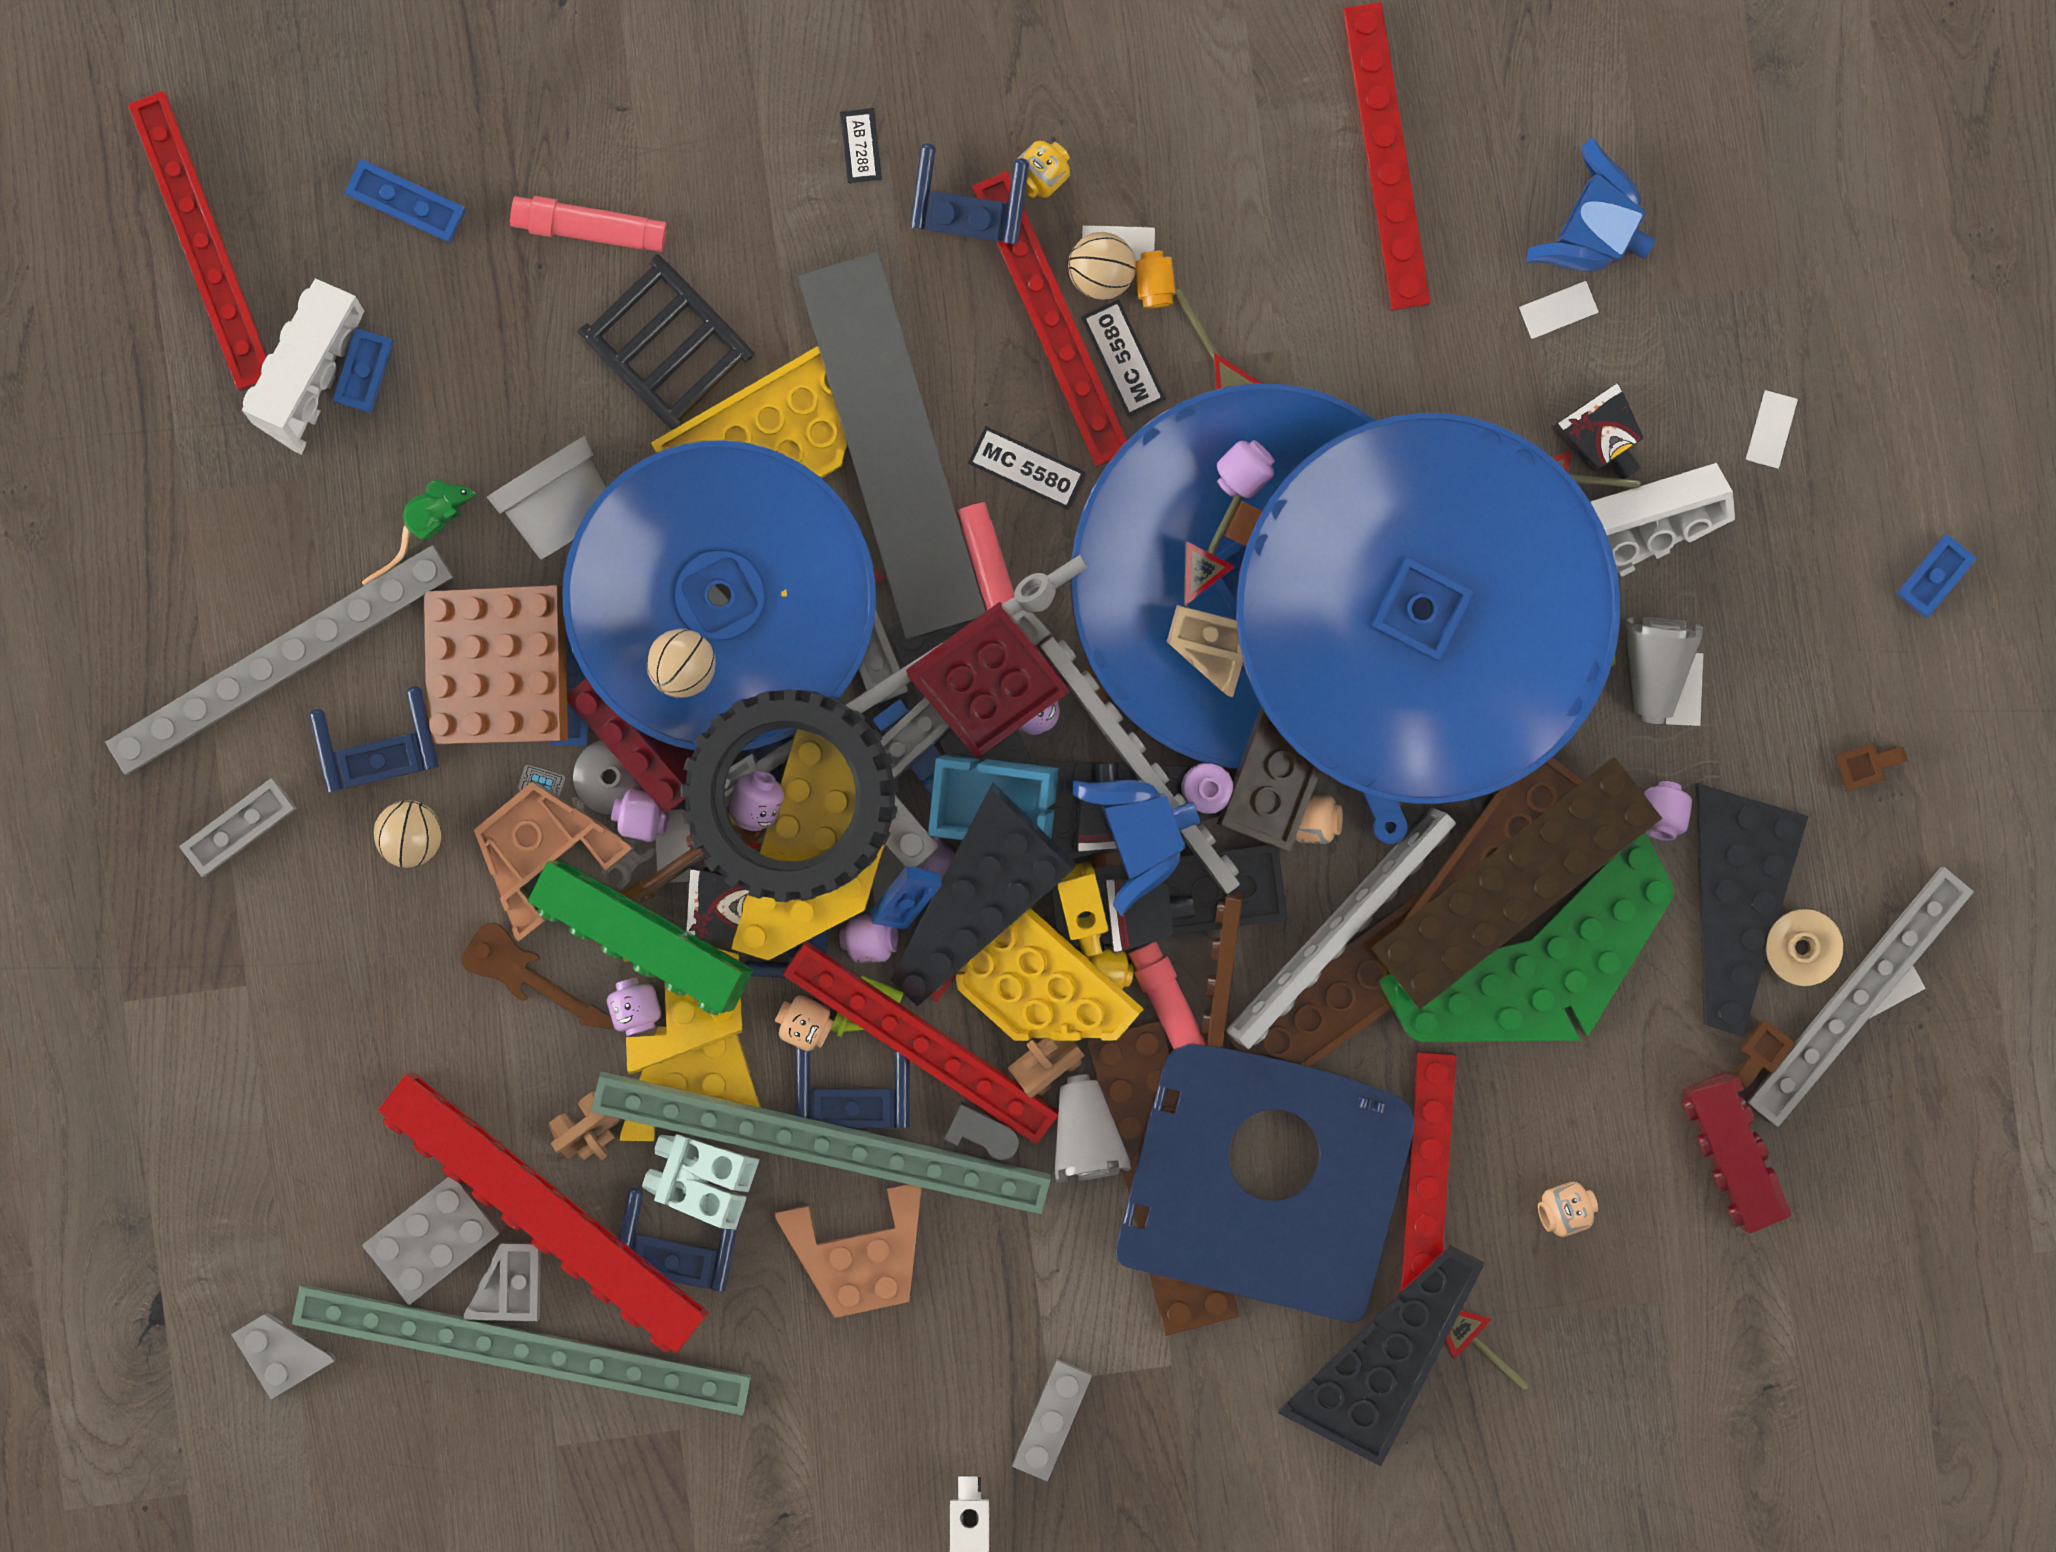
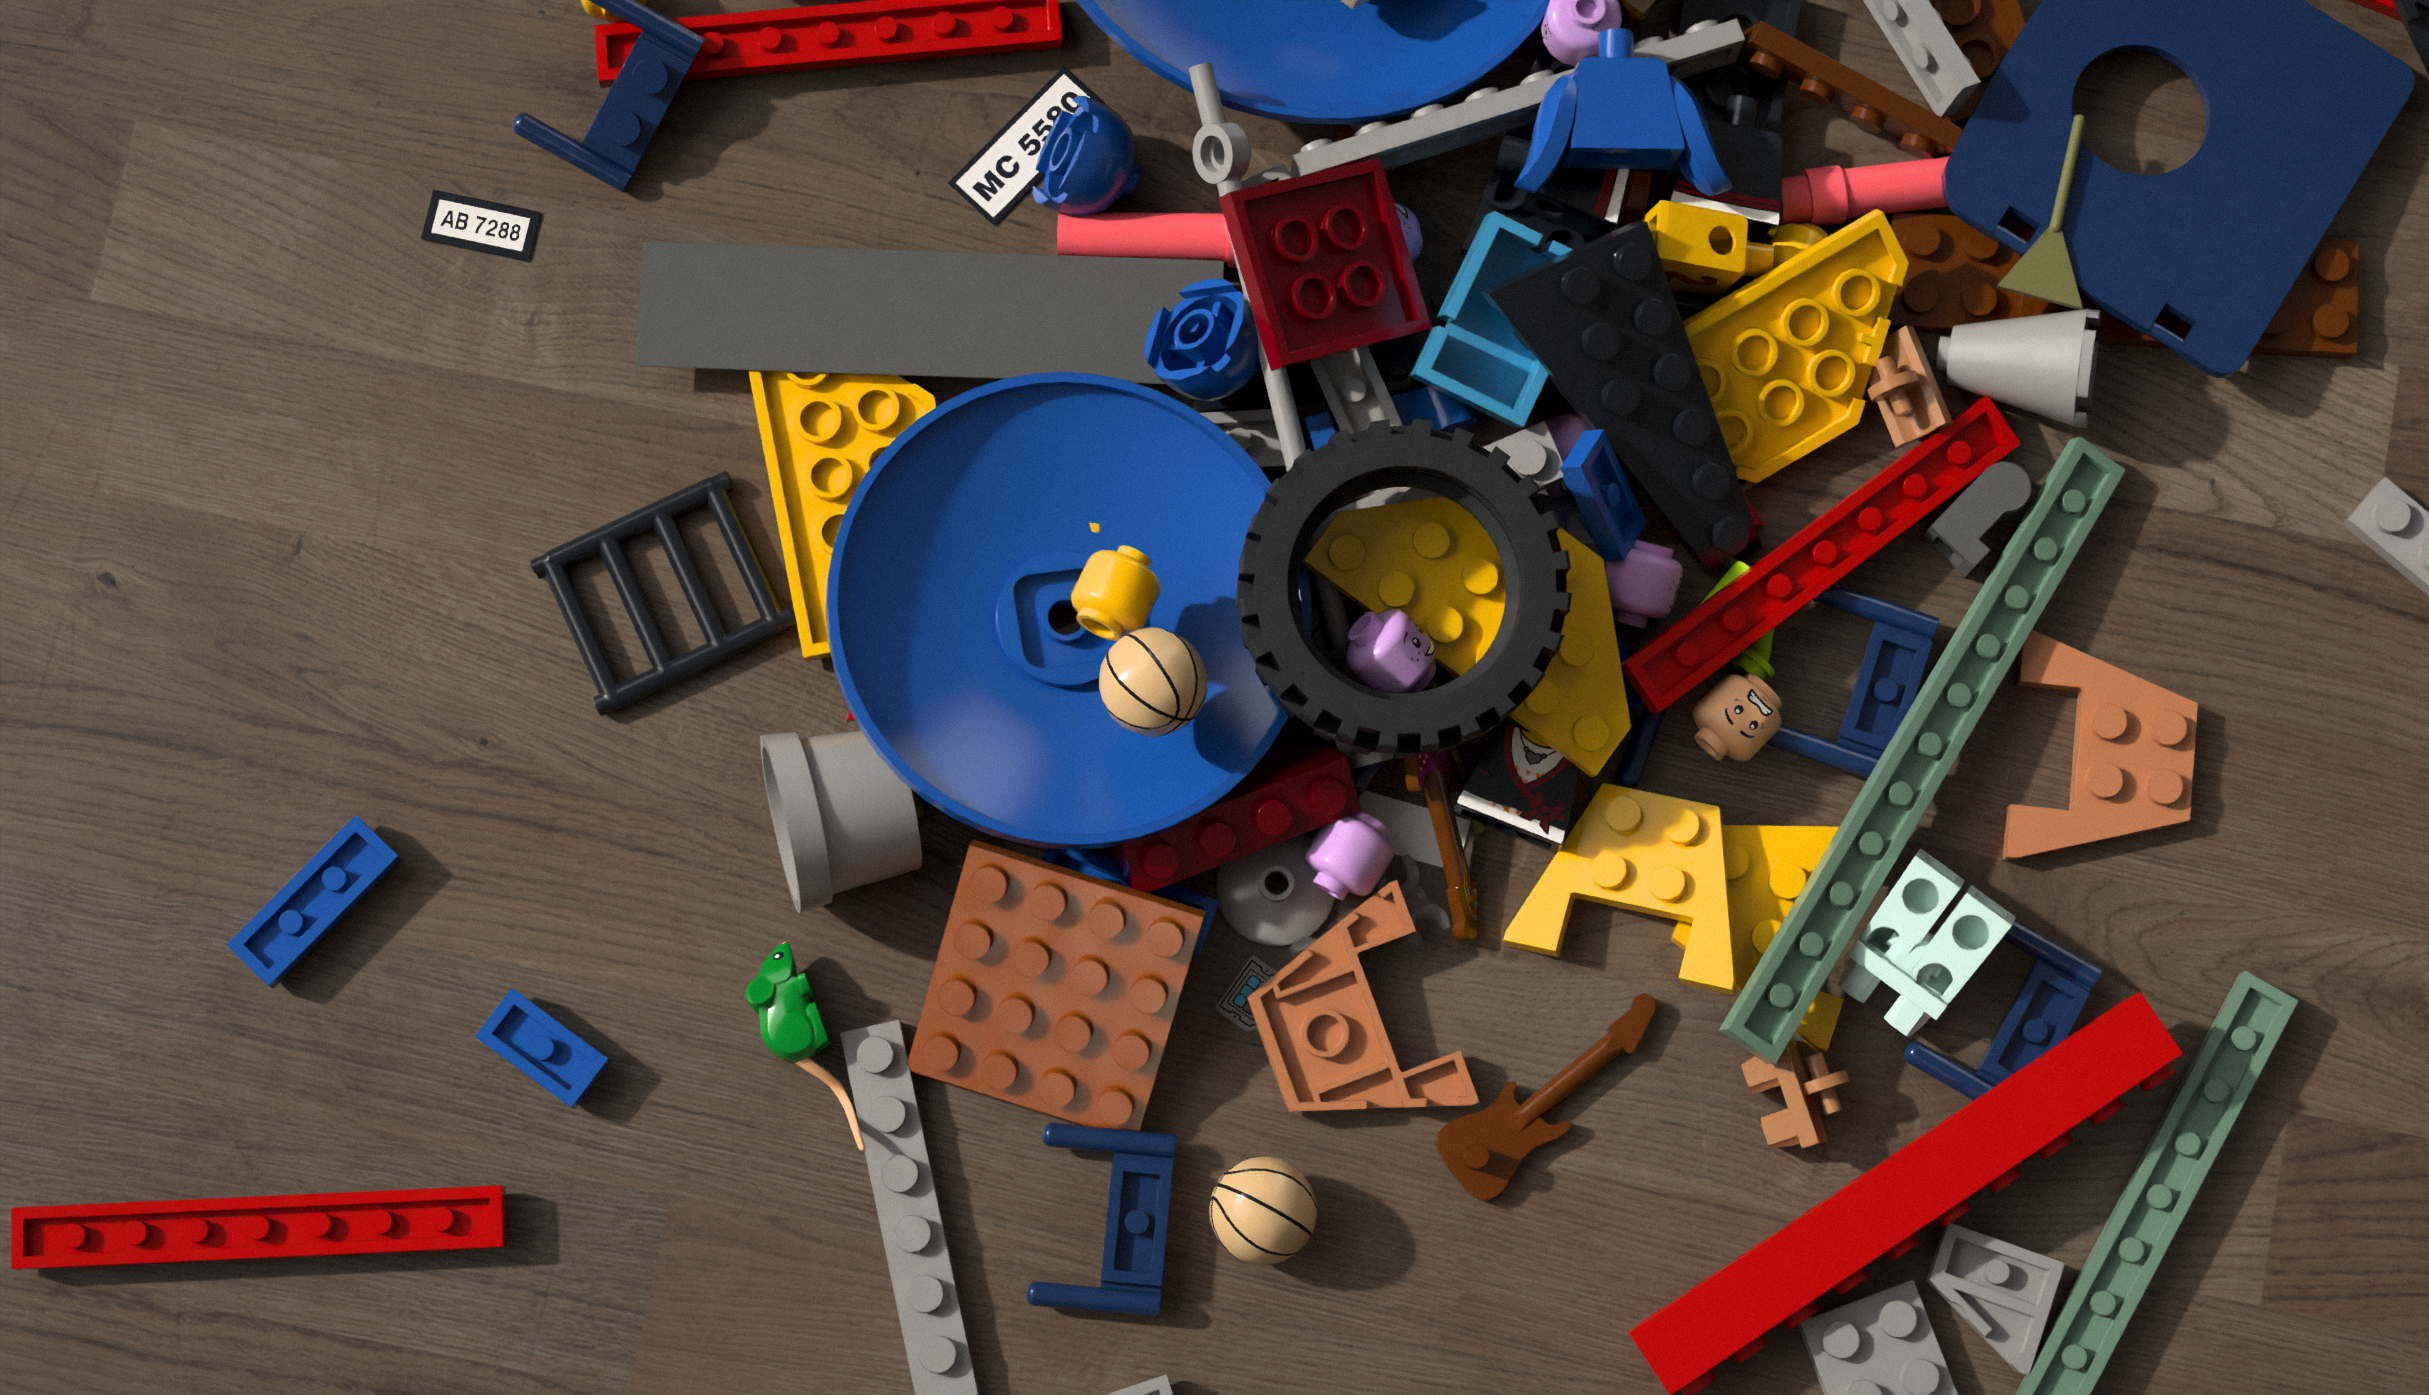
camera: 70 degrees left, 10 degrees down
(303, 364) = (499, 1130): white wedge -> none
(549, 218) = (420, 694): coral piece -> none
(634, 1007) = (1634, 959): lavender head -> none
(640, 936) = (1533, 906): green brick -> none
(732, 622) = (1115, 592): none -> yellow head
(919, 620) = (1205, 342): none -> blue cylinder
(1020, 509) = (1087, 160): none -> blue cylinder
(1146, 1126) = (2046, 266): none -> olive piece

